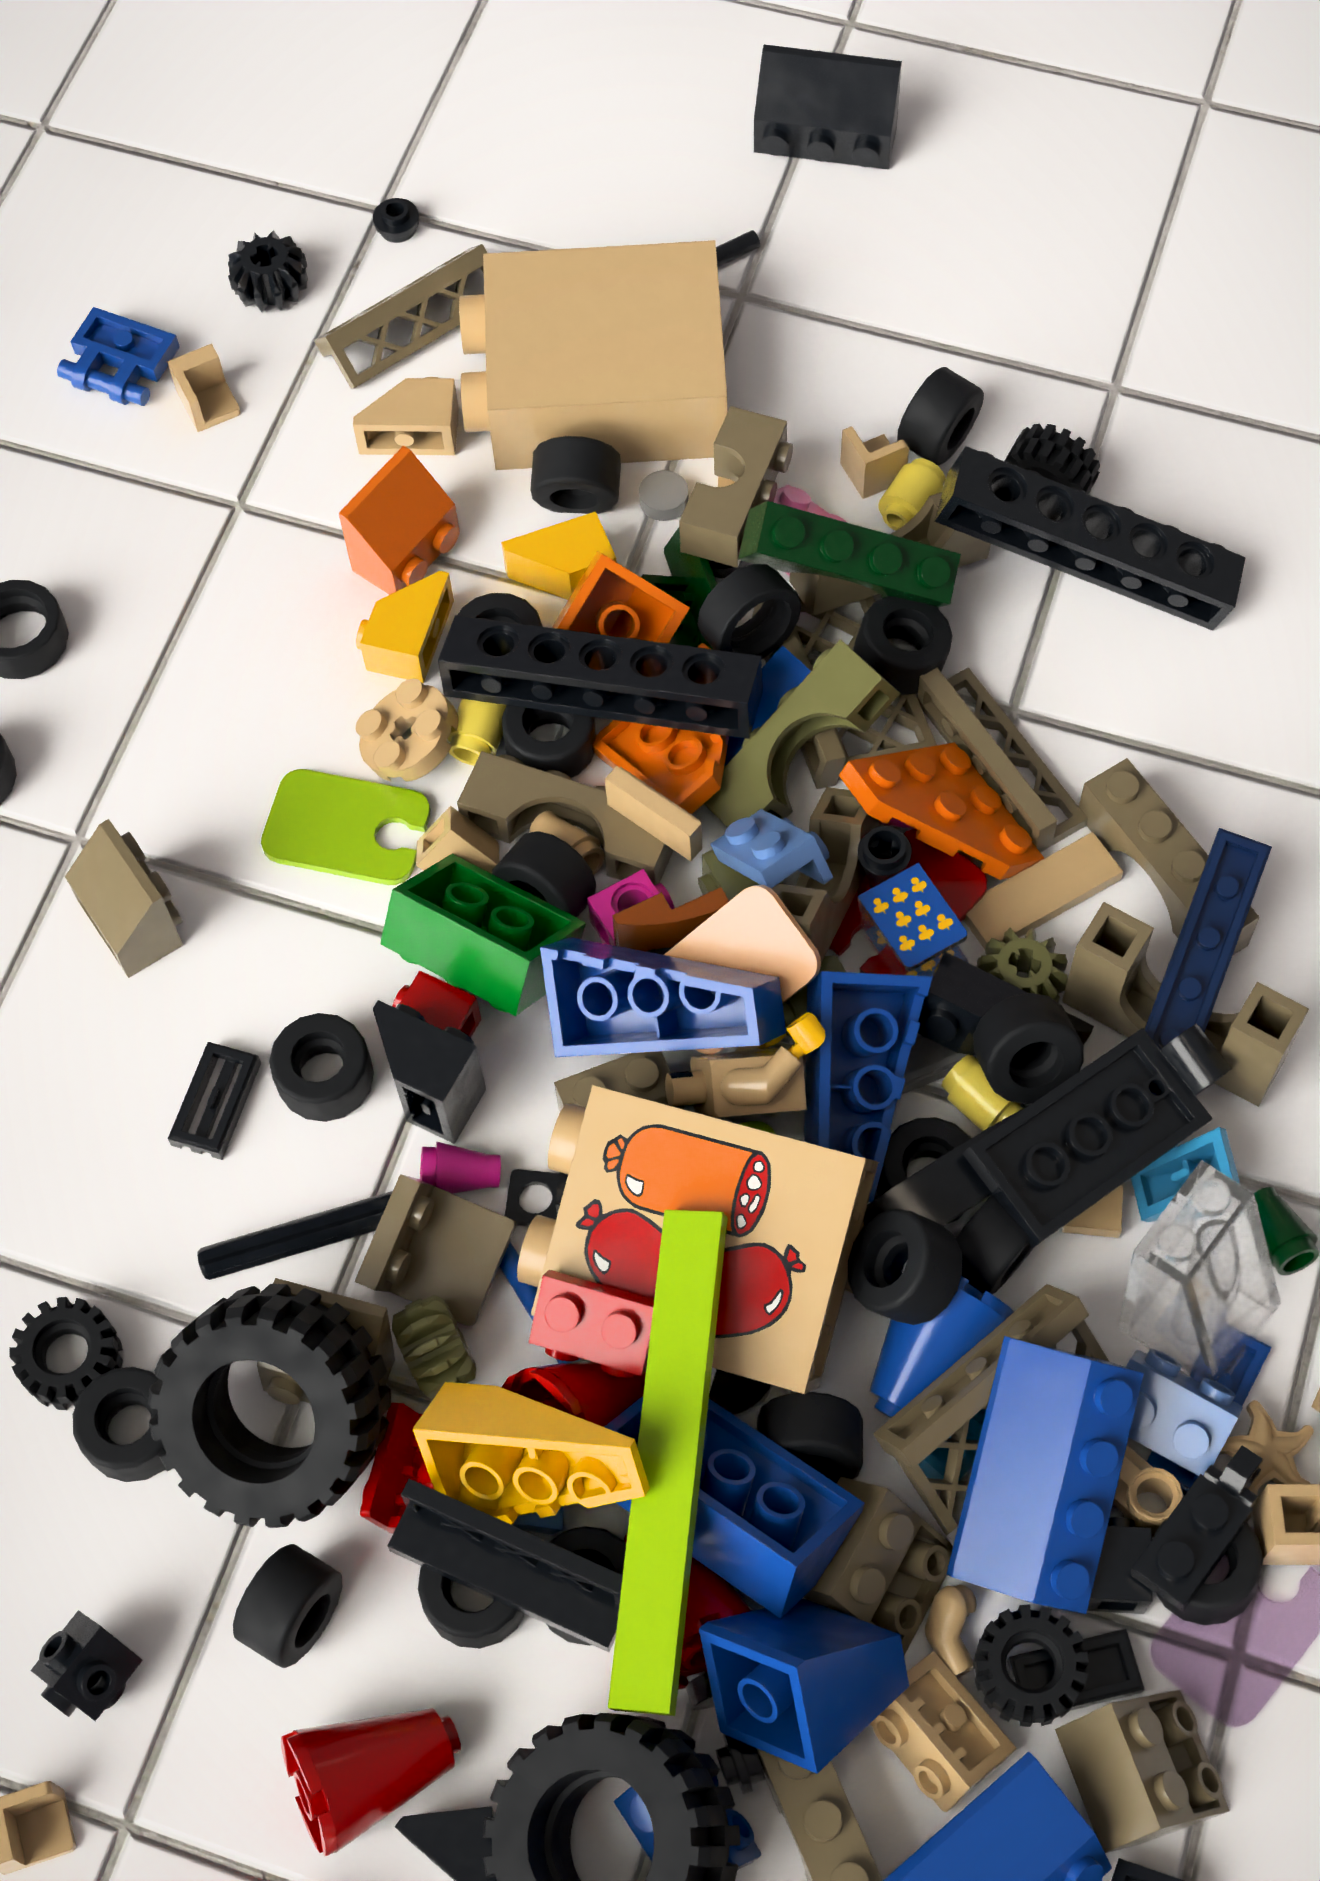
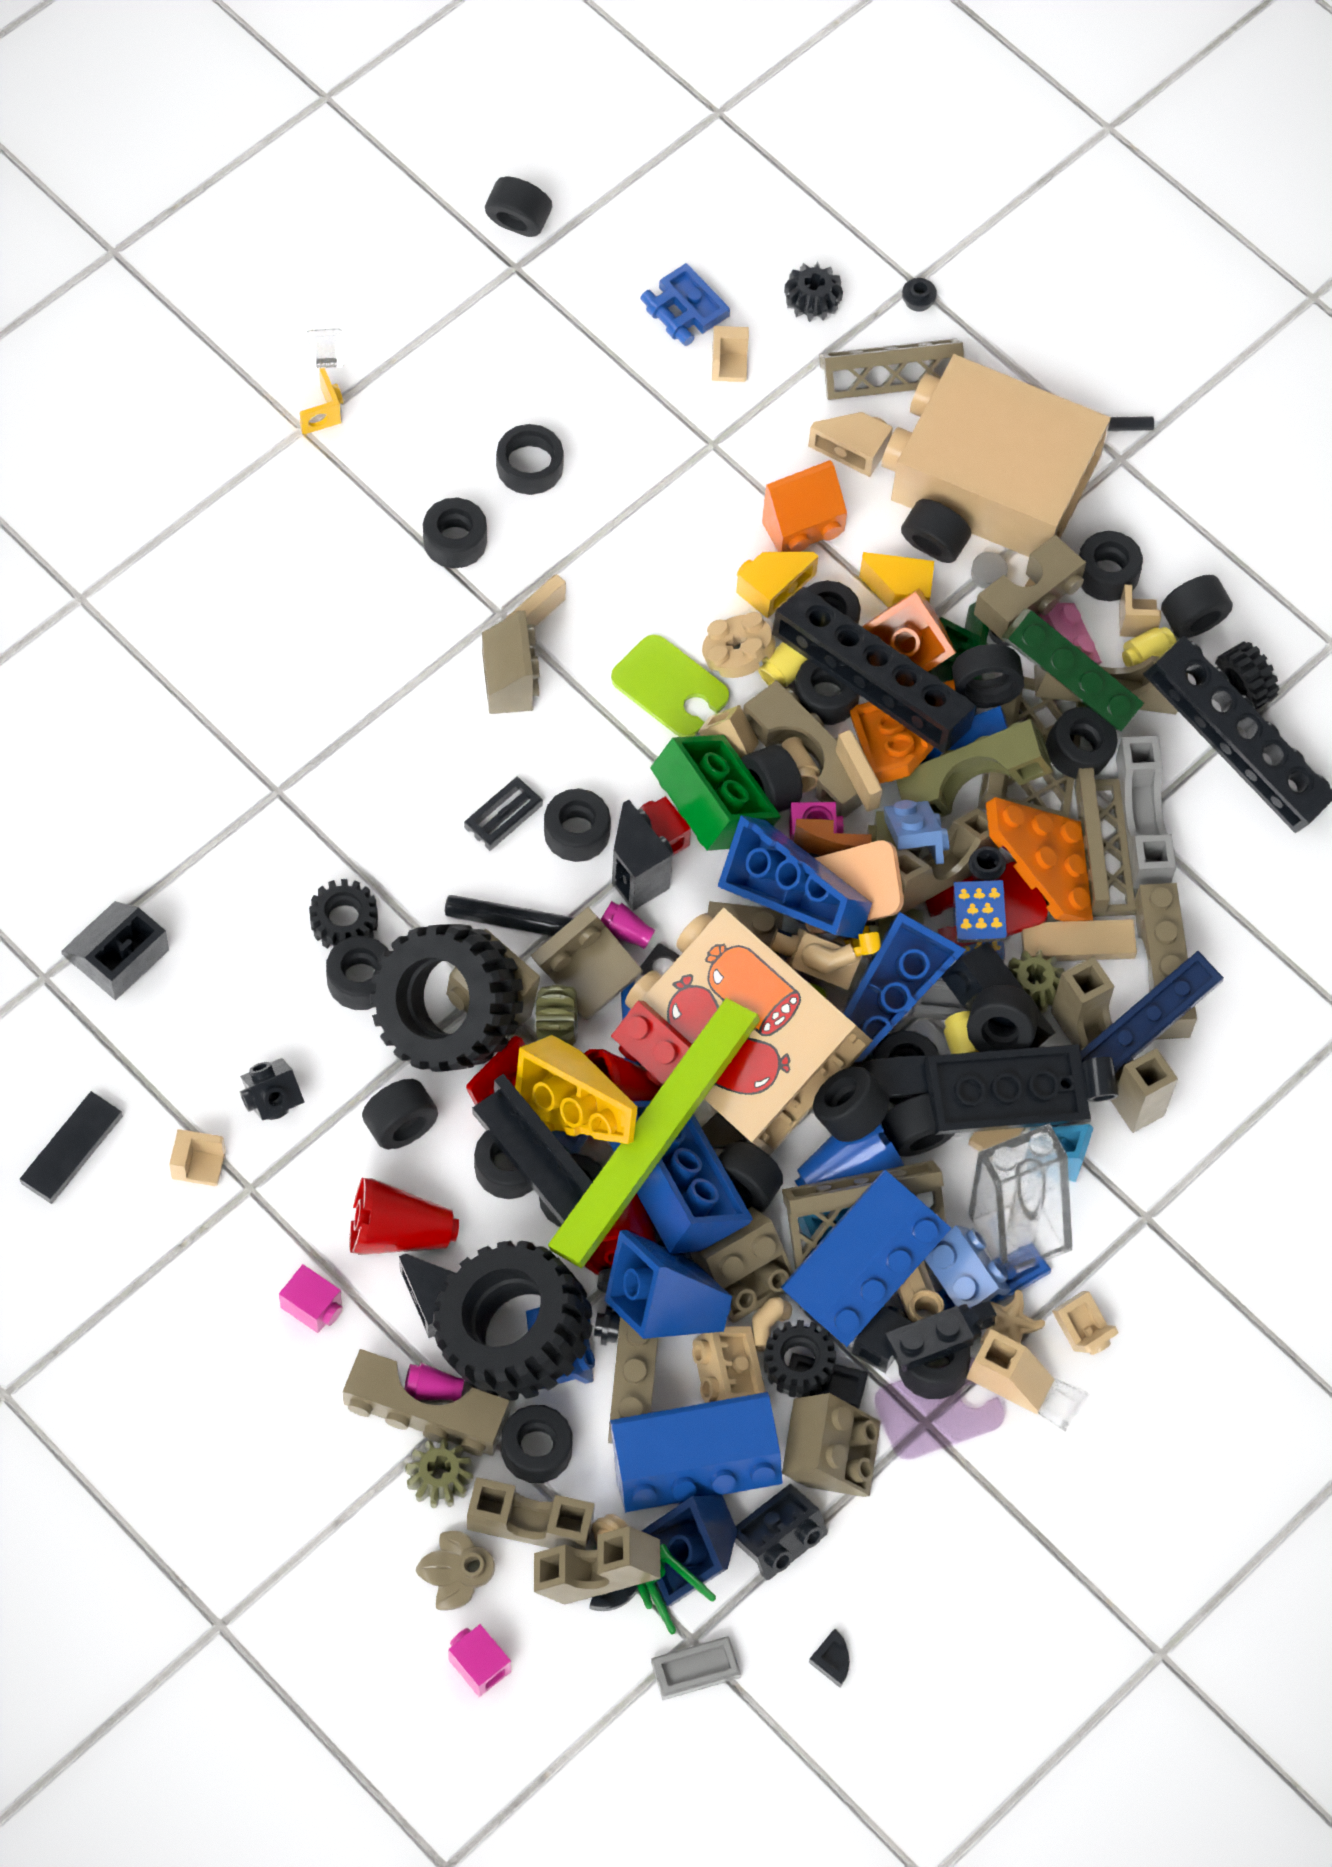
camera: 20 degrees right, 0 degrees up
(126, 795) = (543, 600): none -> tan tile
(815, 398) = (1112, 547): none -> black tyre
(827, 106) = (1250, 355): black slope -> none
(1062, 733) = (1140, 785): none -> light grey arch
(1286, 1234) = (1097, 1209): dark green cone -> none

